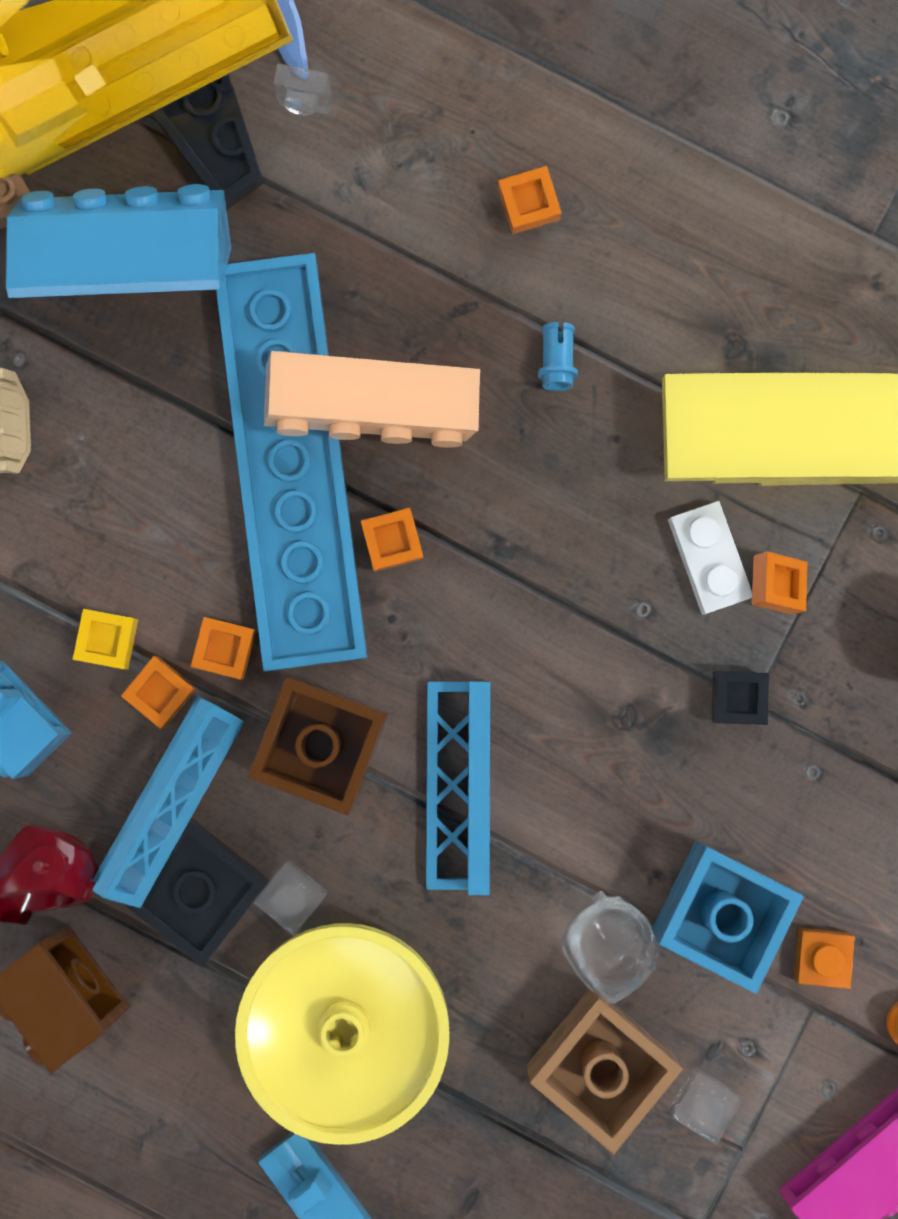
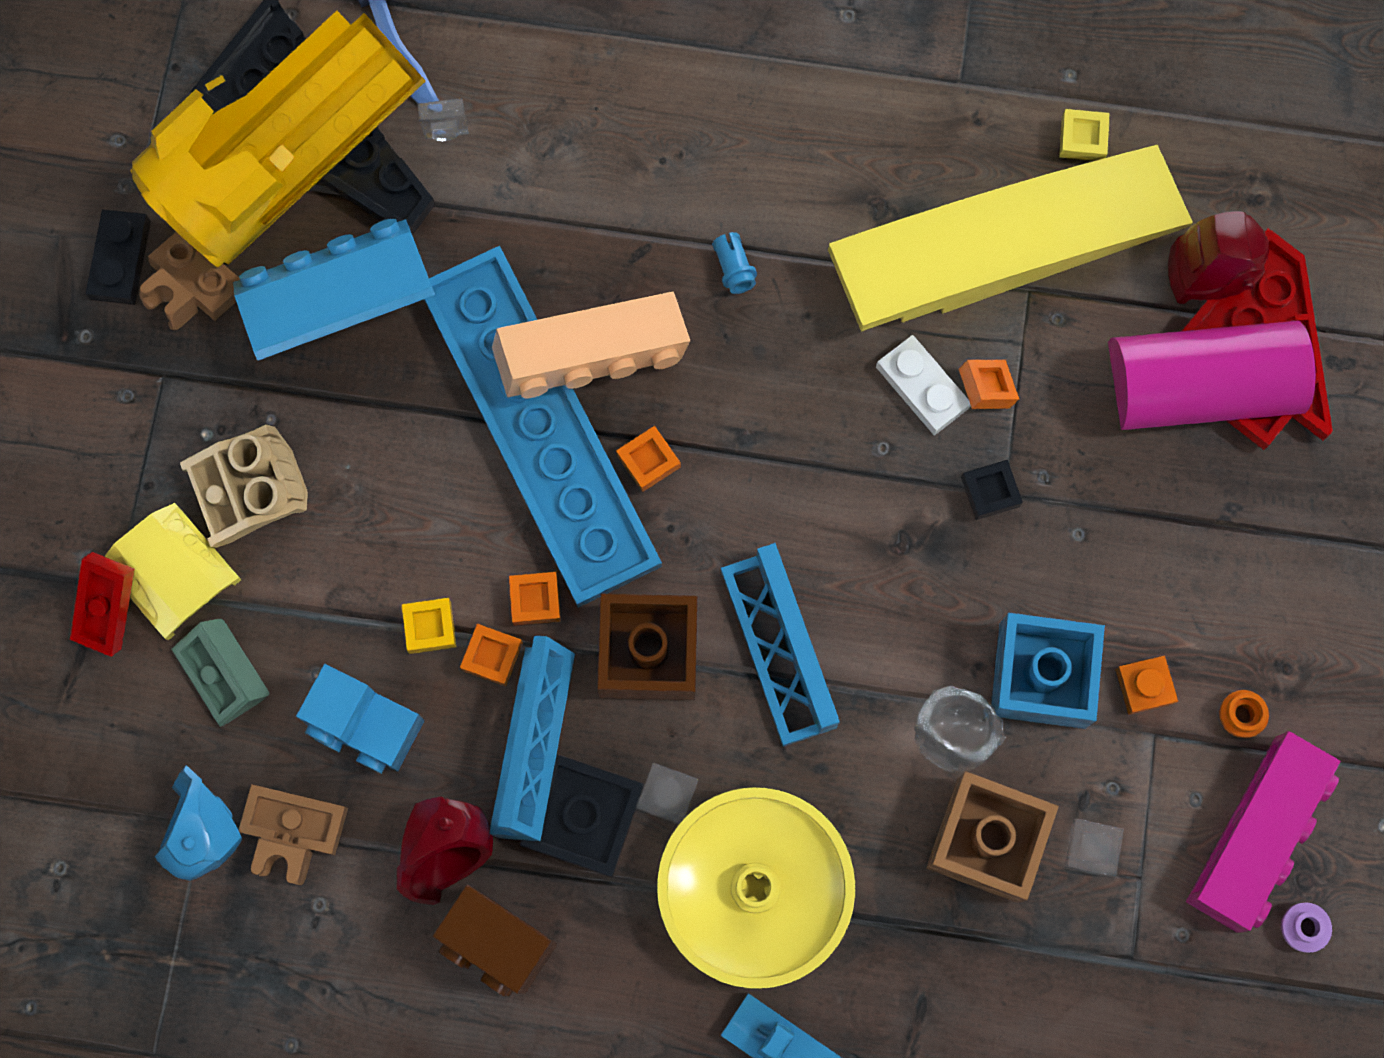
camera: 20 degrees left, 10 degrees down
(529, 200) = (664, 146): orange plate -> none

